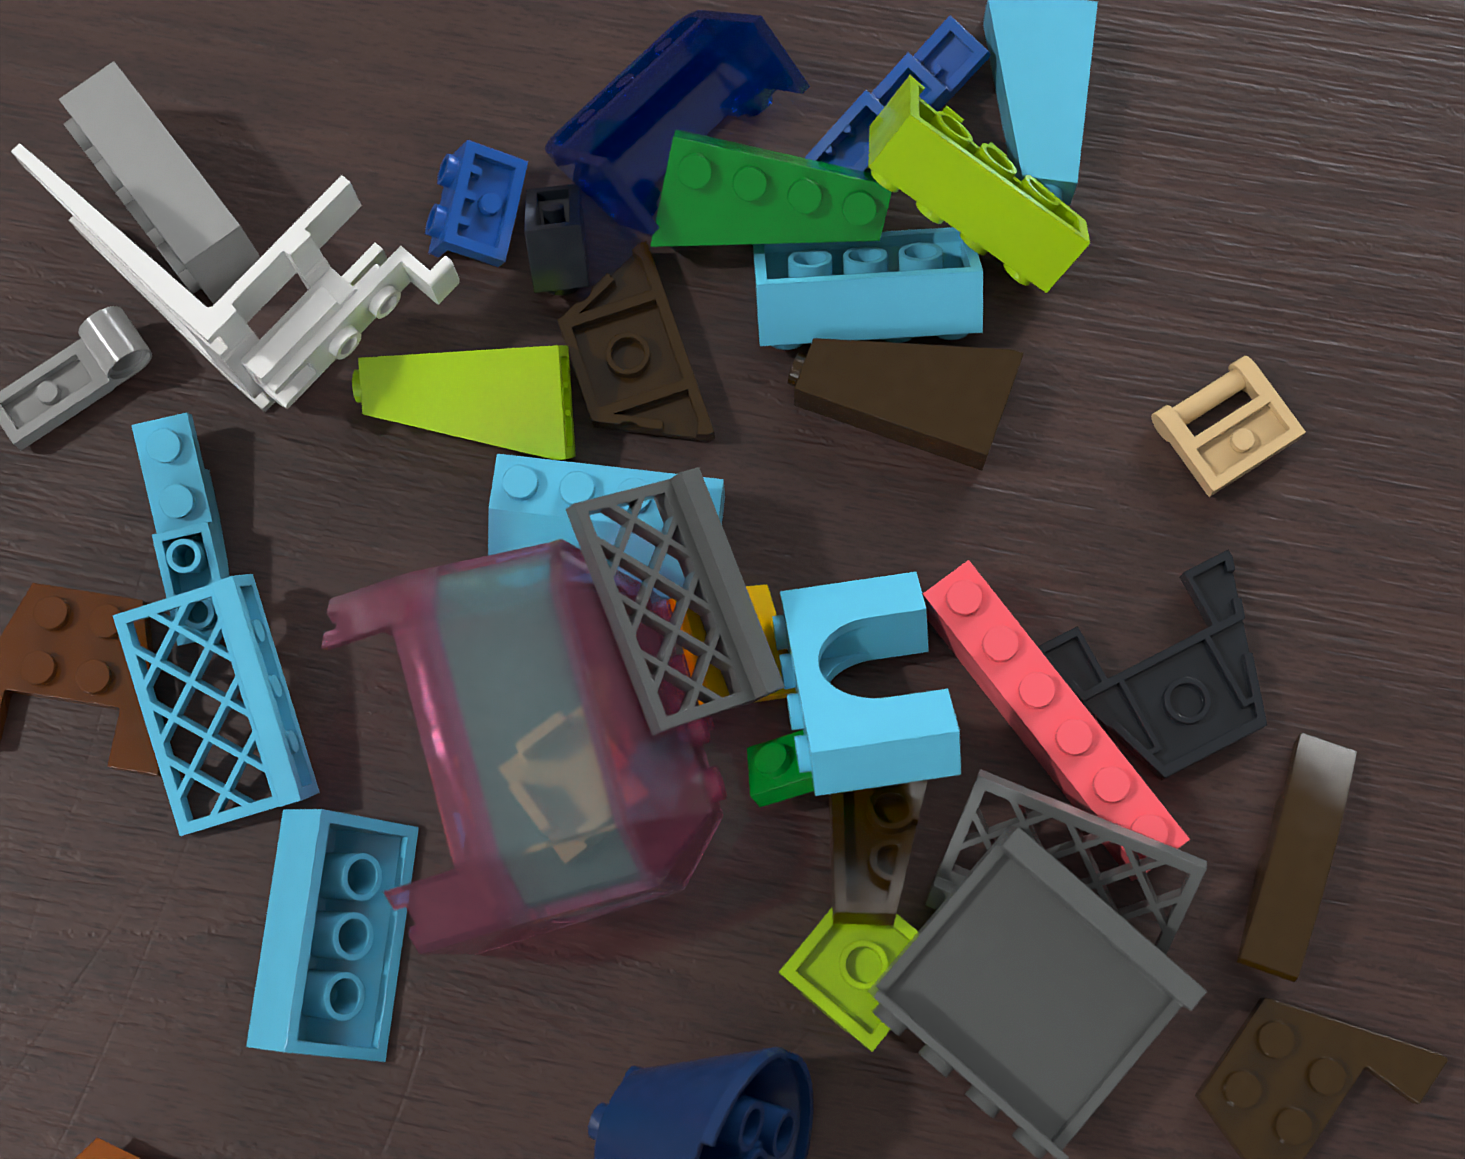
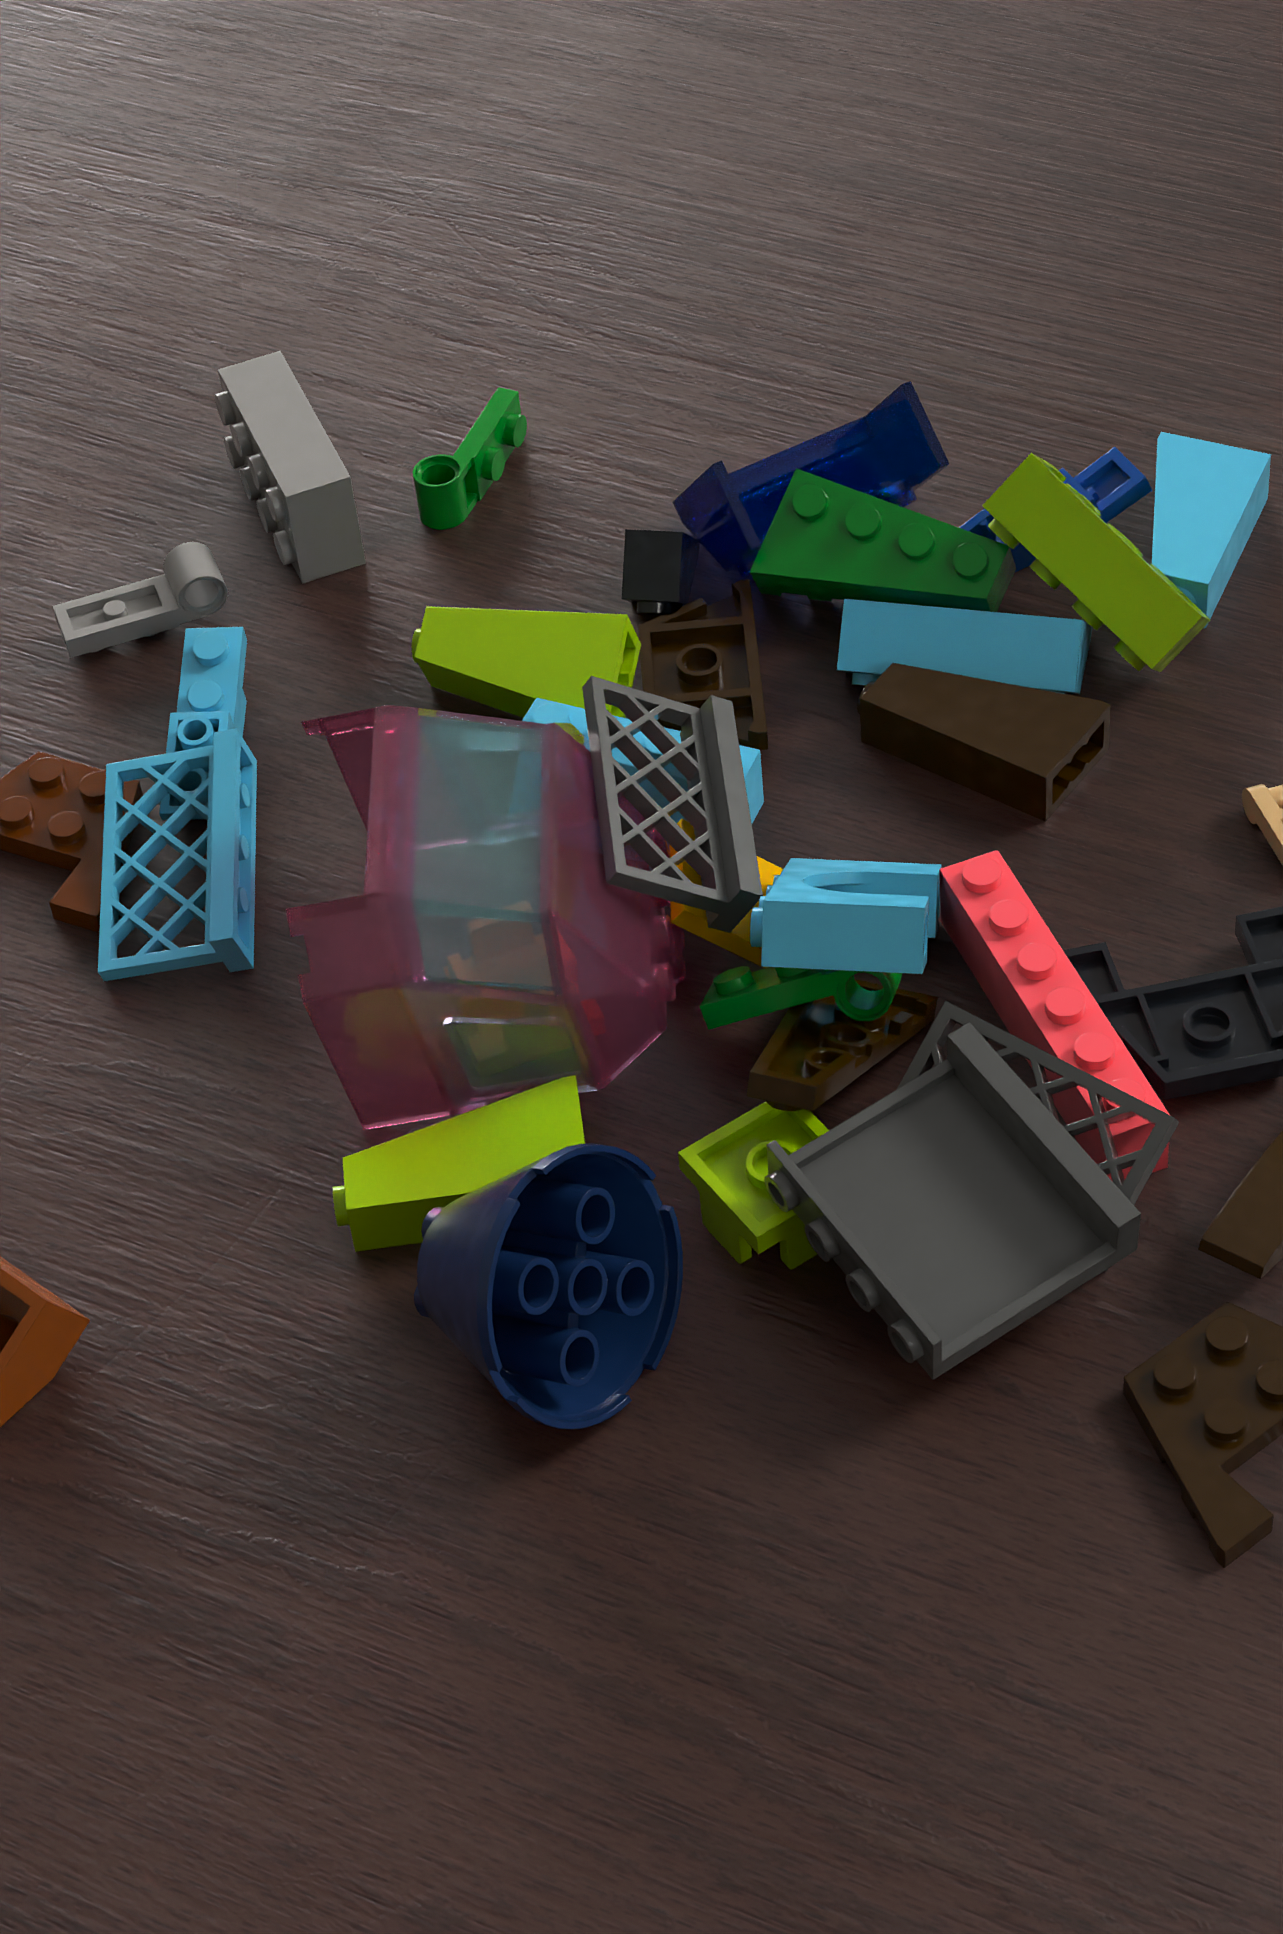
camera: 15 degrees right, 30 degrees down
(310, 335) = (378, 576): white piece -> none
(332, 936) = (216, 1073): medium azure slope -> none
(342, 125) = (452, 485): none -> green plate
(476, 203) = (591, 532): blue bracket -> none
(604, 998) = (403, 1179): none -> lime slope

